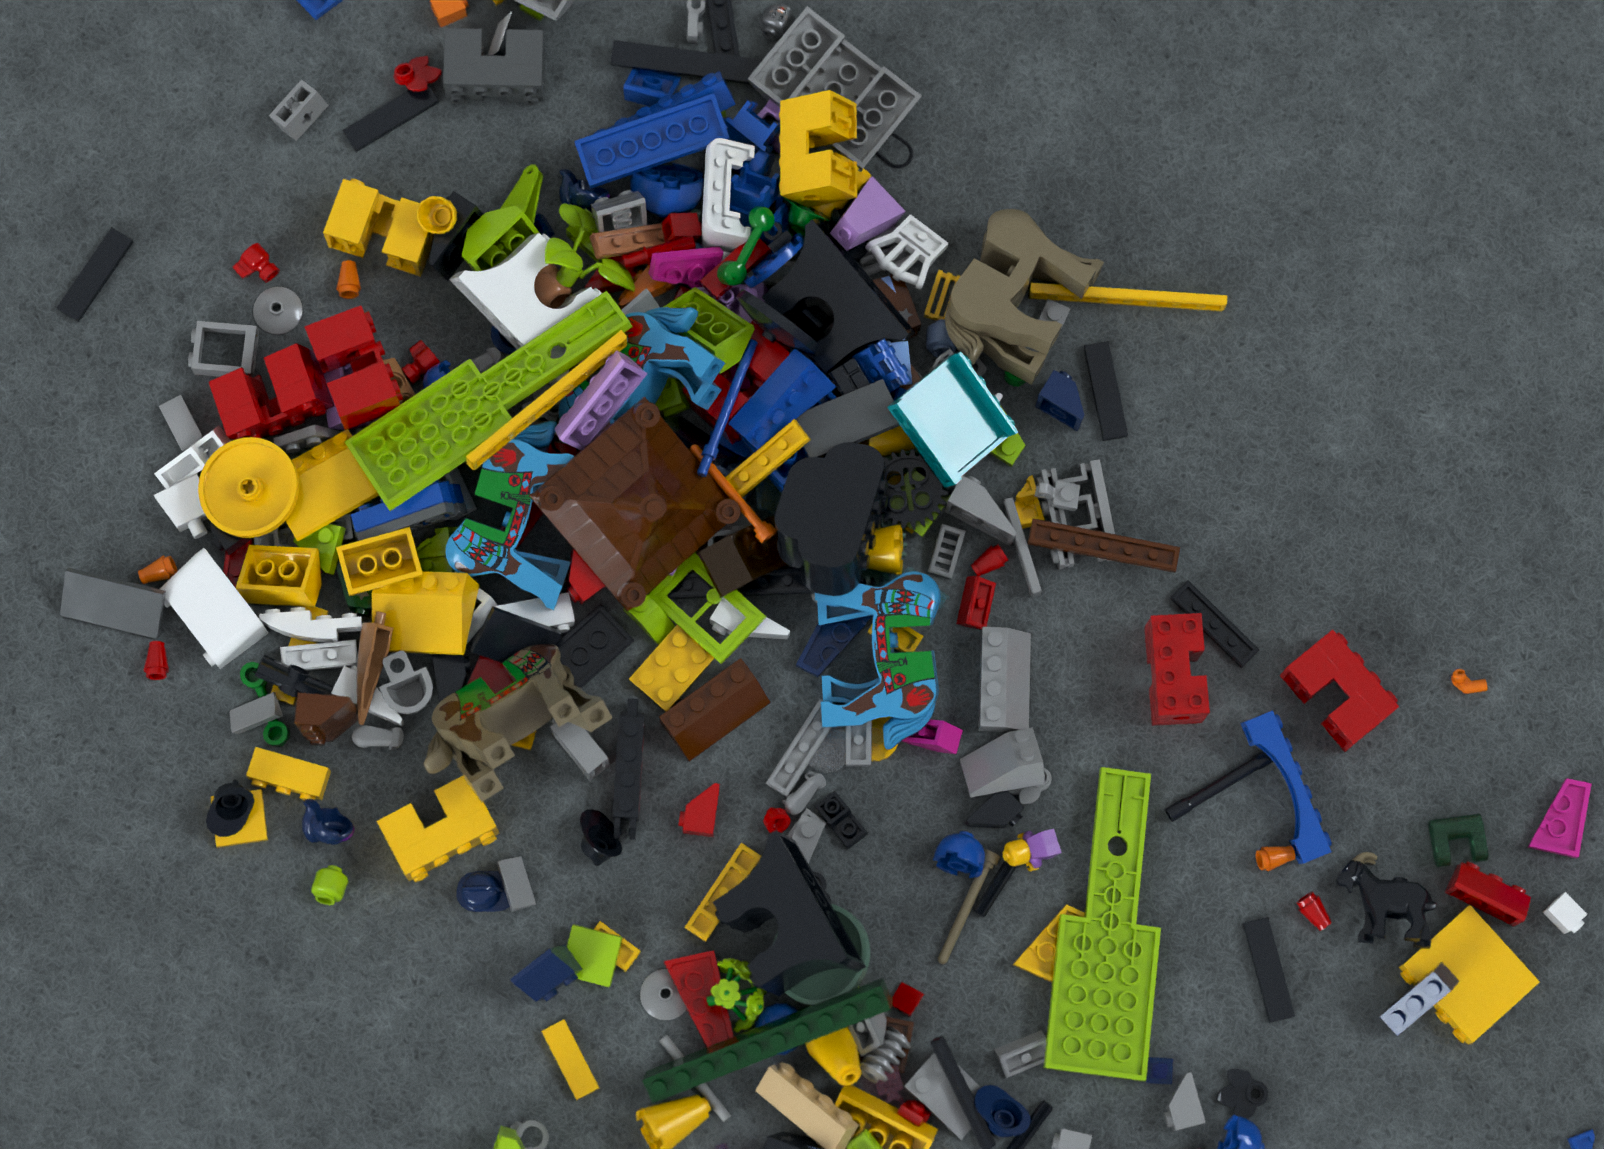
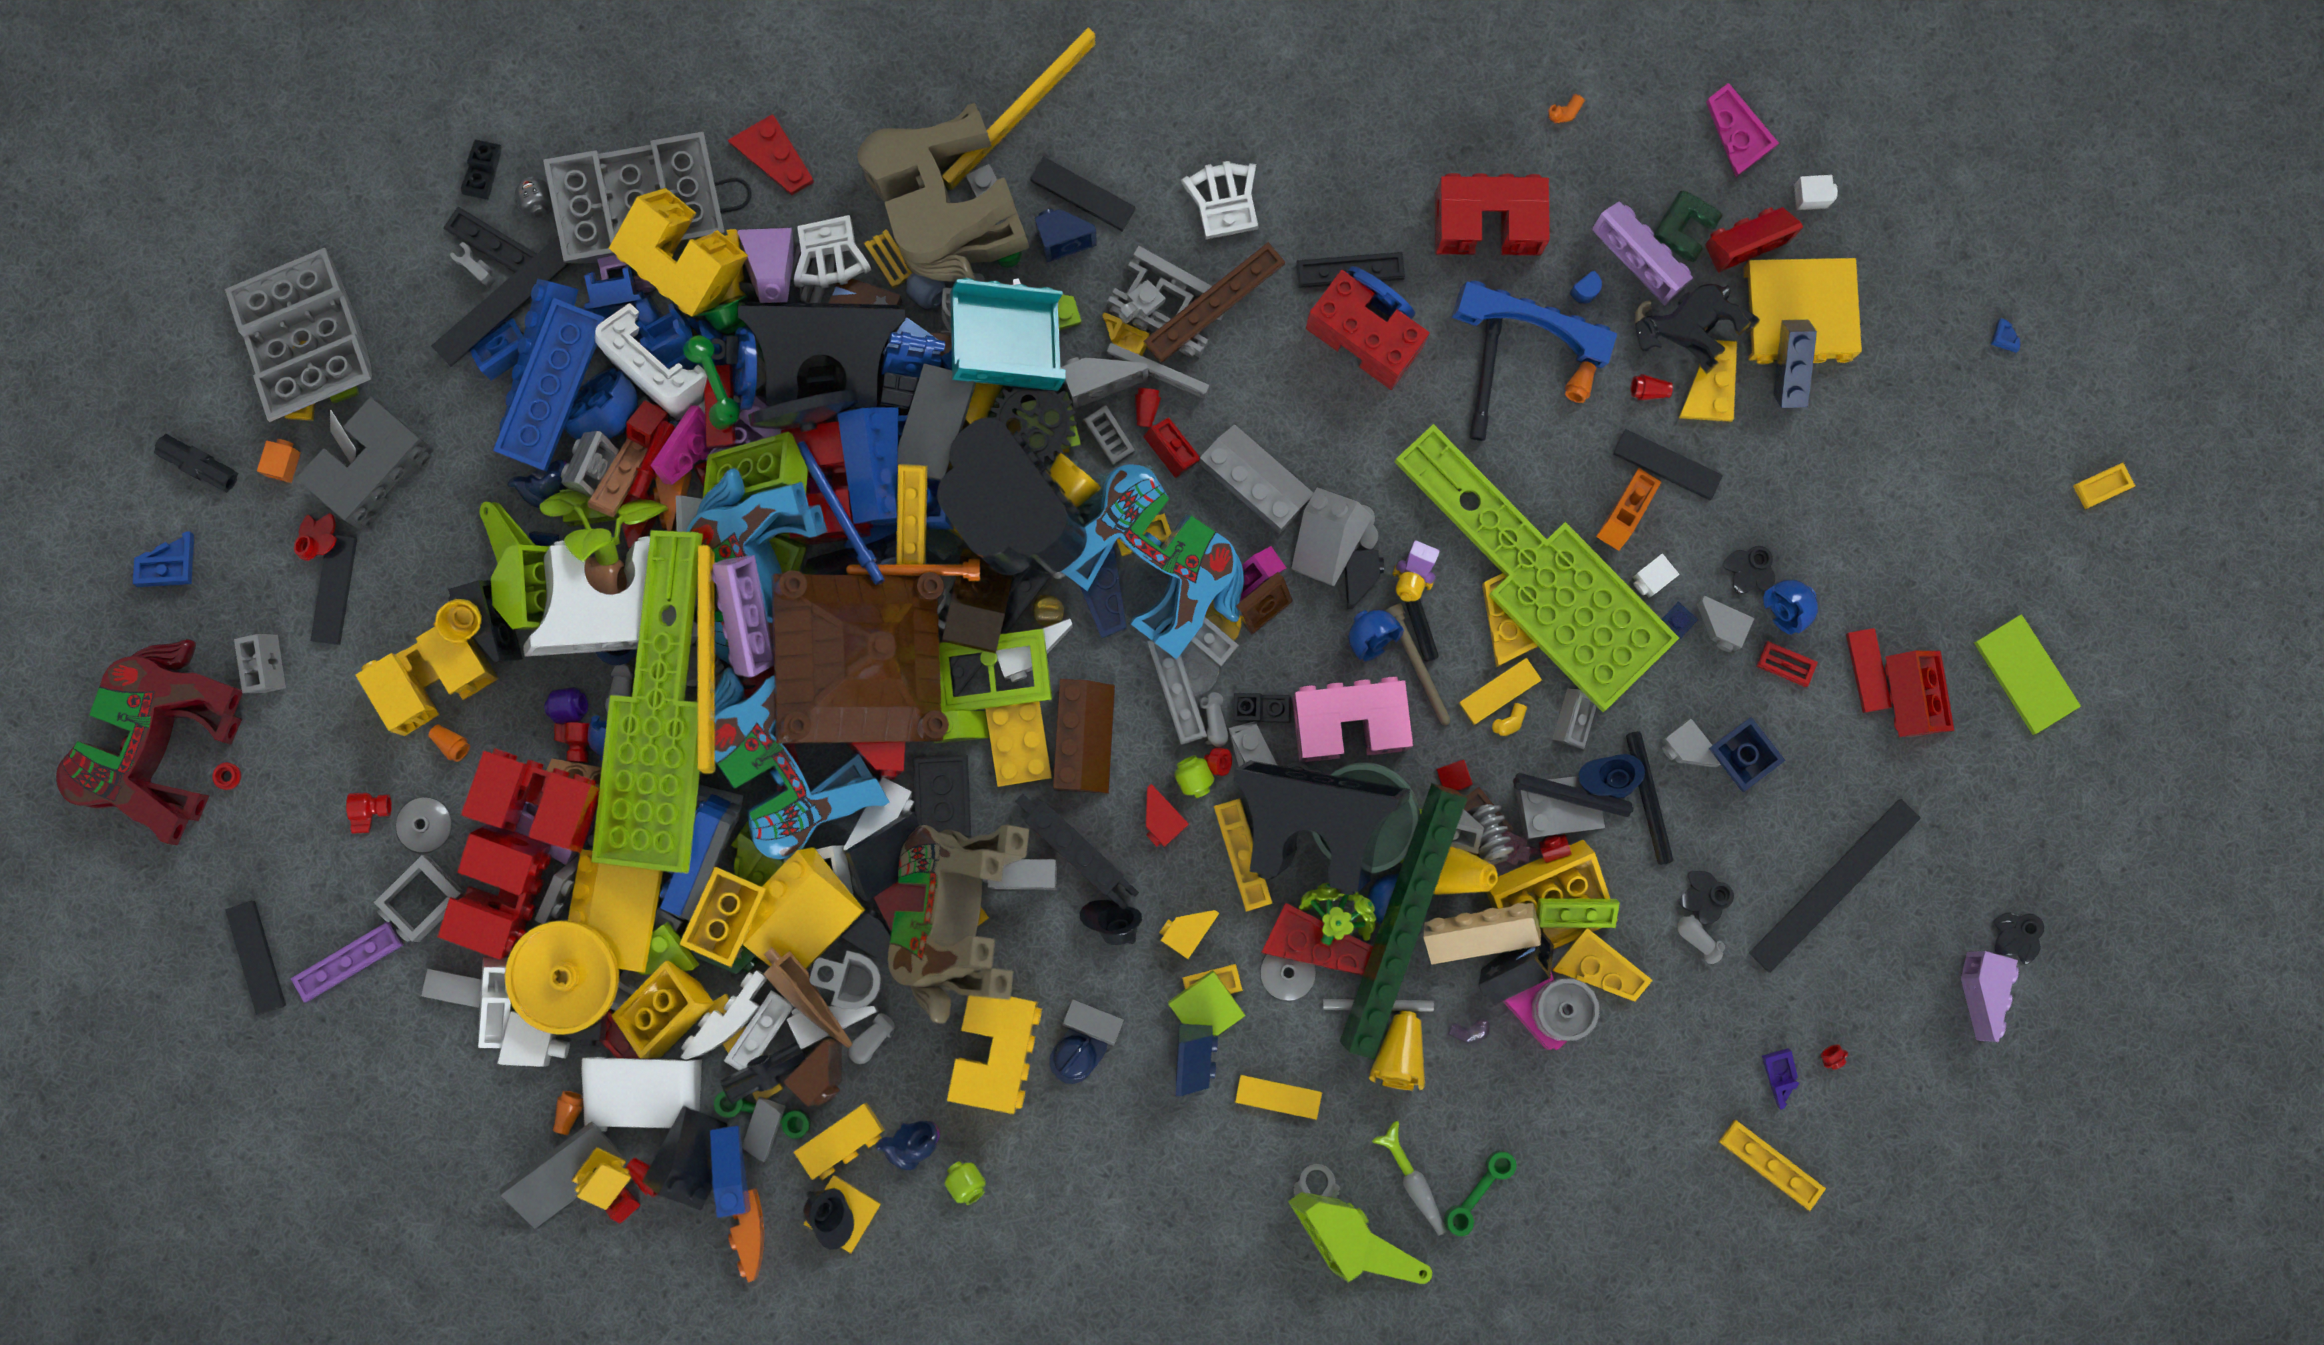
camera: 50 degrees left, 5 degrees up
(123, 657) = (622, 1206): none -> red slope
(131, 630) = (605, 1182): none -> yellow piece
(141, 337) = (347, 961): none -> medium lavender tile
(174, 764) = (749, 1238): none -> orange slope
(192, 678) = (684, 1161): none -> black slope
(198, 147) = (218, 776): none -> red plate
(205, 713) = (729, 1172): none -> blue slope
(212, 55) = (145, 698): none -> dark red animal
(439, 337) = (566, 705): none -> dark purple head
(635, 897) = (1187, 931): none -> yellow slope
(750, 811) = (1194, 776): none -> lime head
(783, 611) = (1048, 610): none -> clear yellow piece
(873, 862) = (1379, 706): none -> bright pink piece
(916, 758) = (1264, 603): none -> reddish brown tile
(949, 154) = (773, 153): none -> red wing
(980, 1009) = (1511, 724): none -> yellow arm
(997, 982) = (1500, 691): none -> yellow tile
(1176, 1026) = (1654, 576): none -> white brick
(1178, 504) = (1229, 214): none -> white plate
(1209, 657) = (1385, 297): none -> blue tile
(1210, 967) = (1629, 509): none -> orange slope
(1347, 804) = (1587, 288): none -> blue brick
(1350, 960) = (1714, 394): none -> yellow wing
(1409, 822) = (1642, 252): none -> lavender slope

